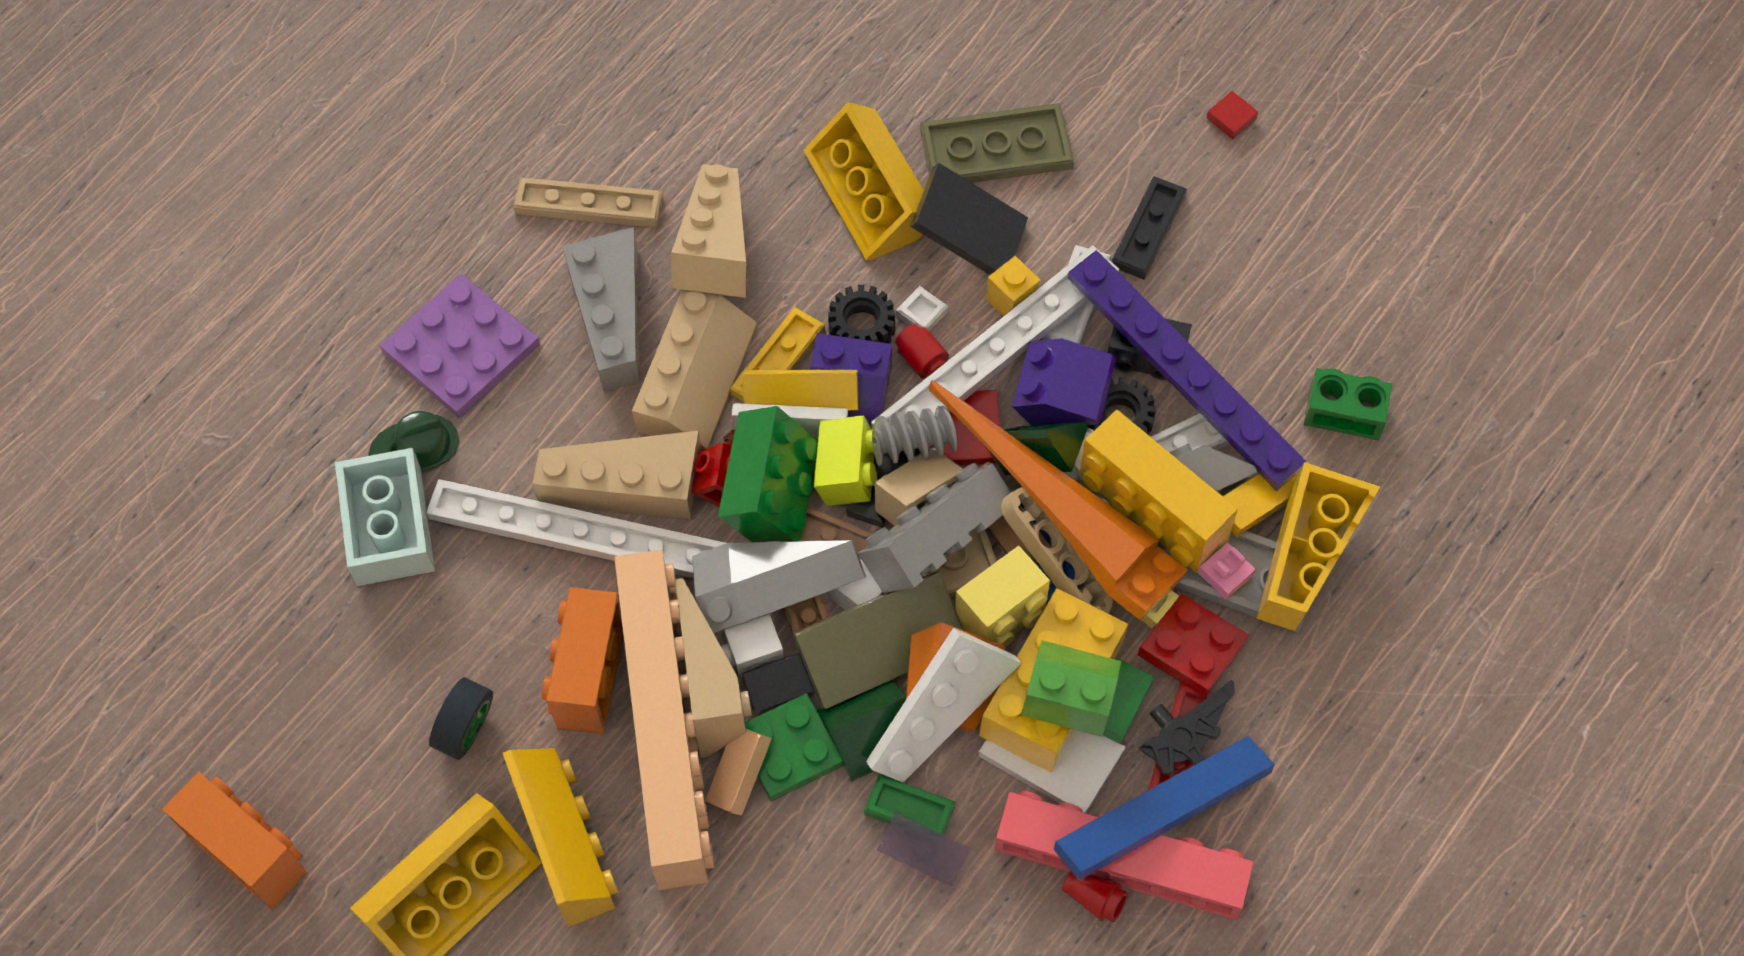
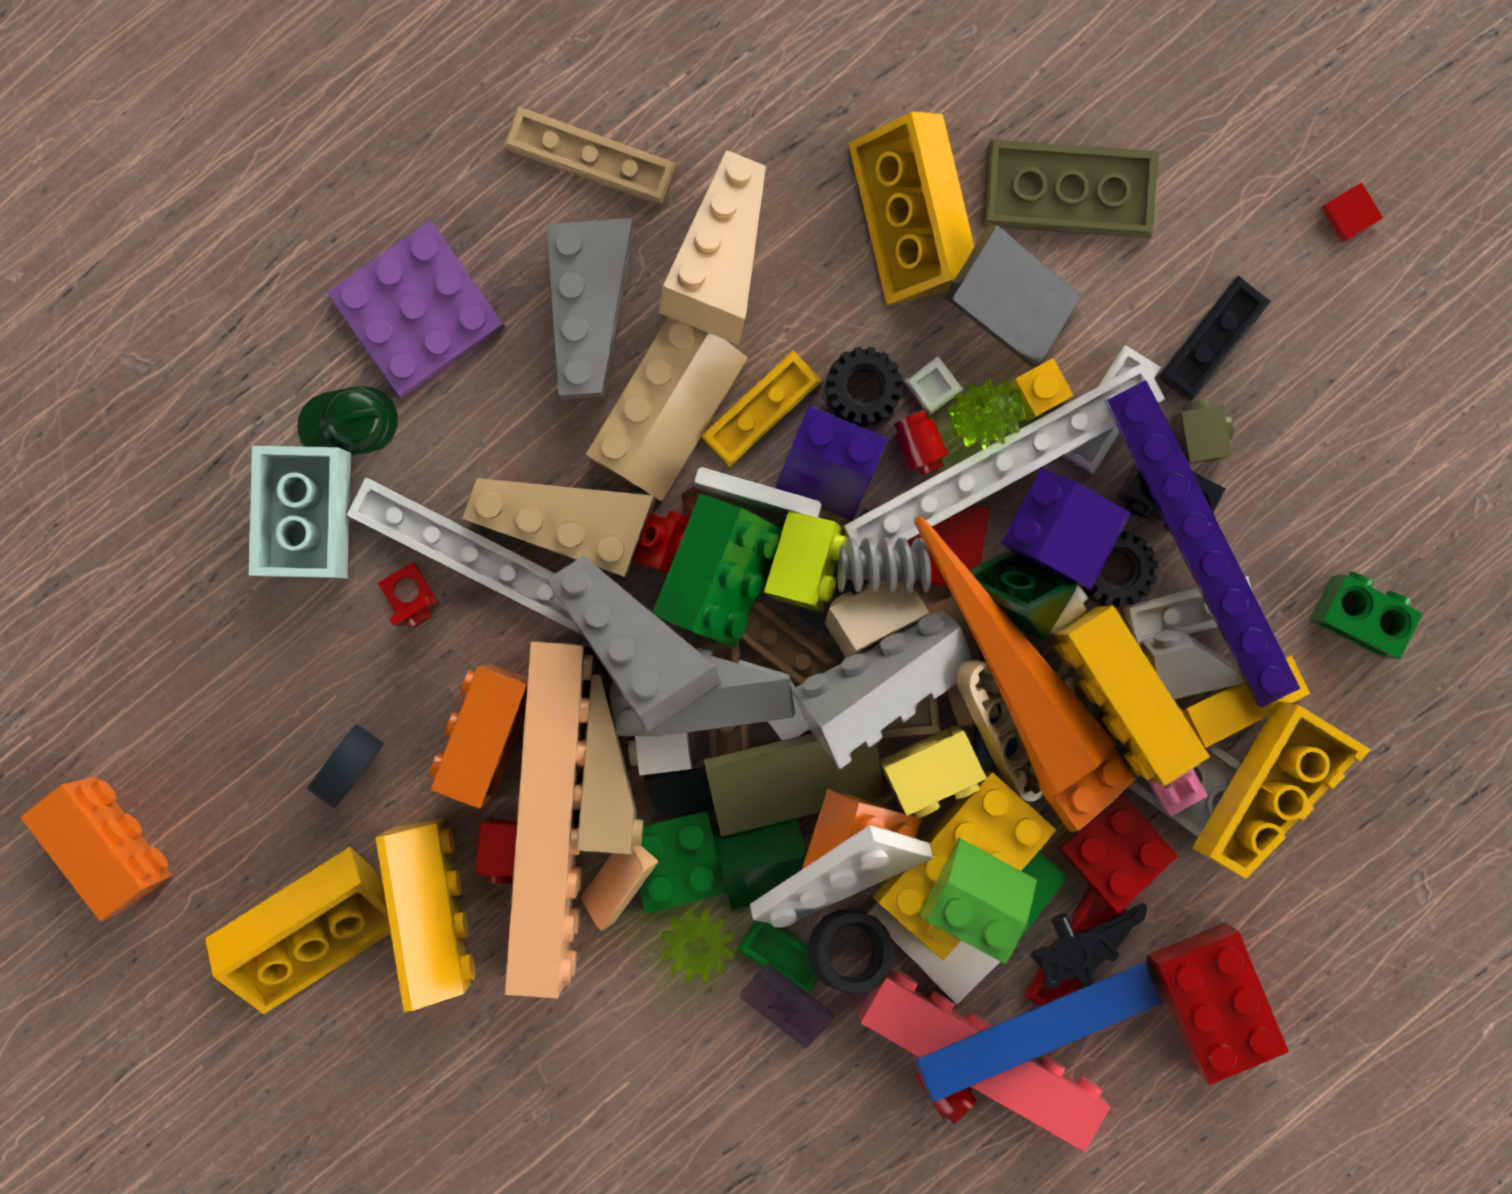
camera: 10 degrees right, 25 degrees up
(500, 577) = (412, 612): none -> red bracket
(619, 767) = (497, 850): none -> red brick
(707, 541) = (638, 650): none -> light grey wedge
(802, 388) = (776, 467): yellow tile -> none
(812, 805) = (709, 956): none -> clear neon green gear
(972, 314) = (987, 413): none -> clear neon green gear
(985, 759) = (880, 961): none -> black tyre
(1163, 290) = (1203, 432): none -> olive brick
(1325, 751) = (1218, 1003): none -> red brick

